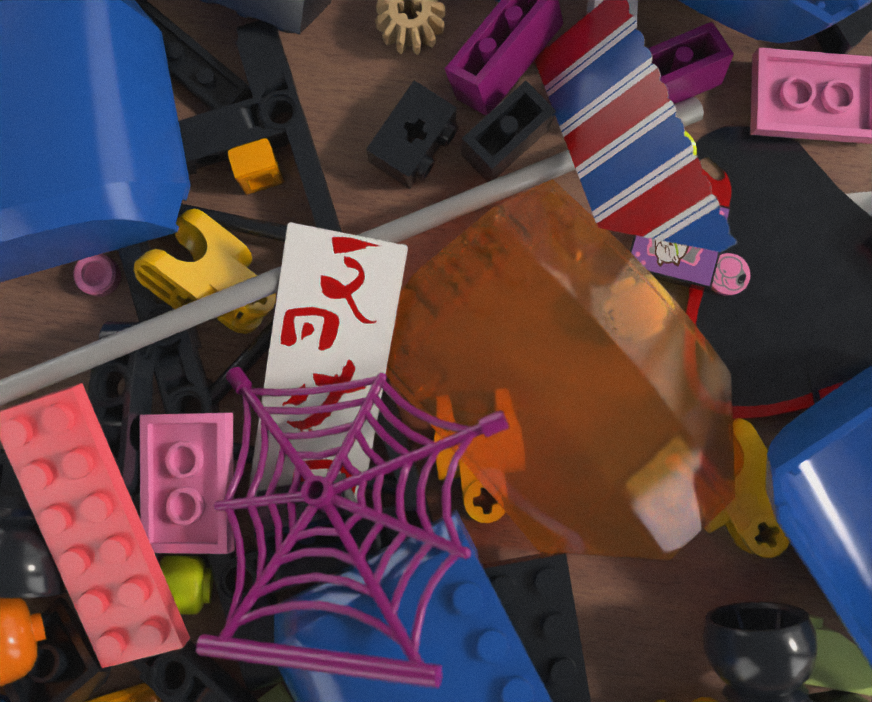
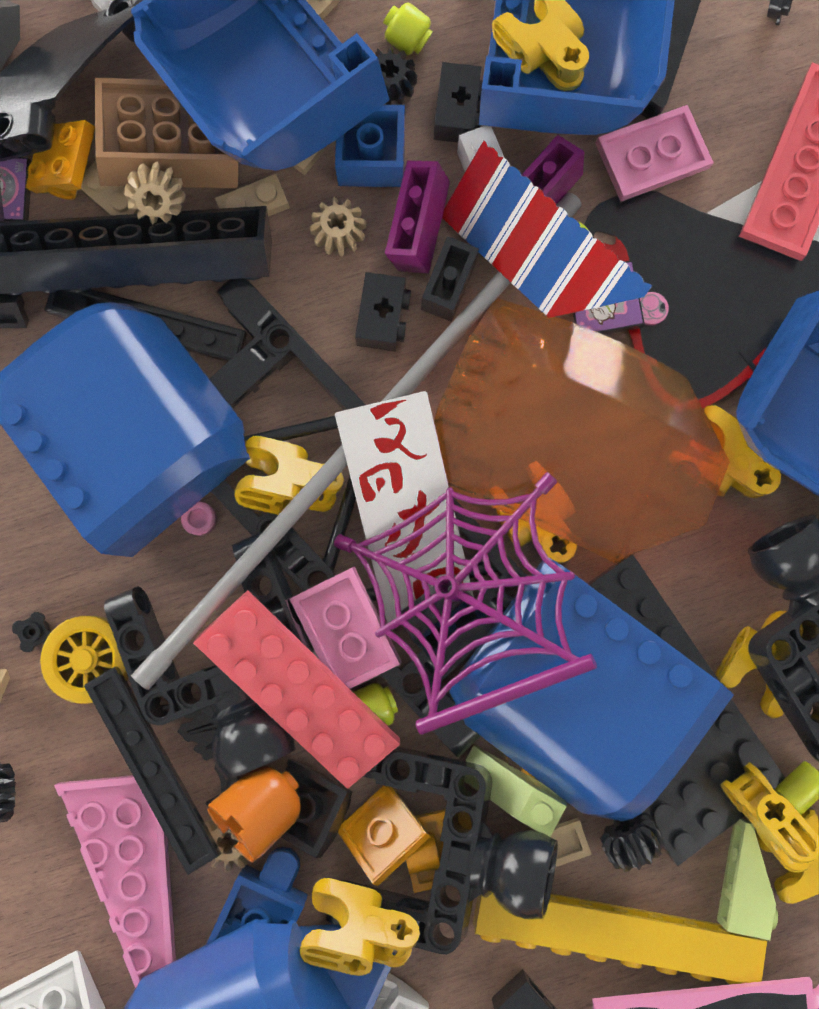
camera: 30 degrees left, 0 degrees up
(255, 166) = (279, 385): light orange slope -> none

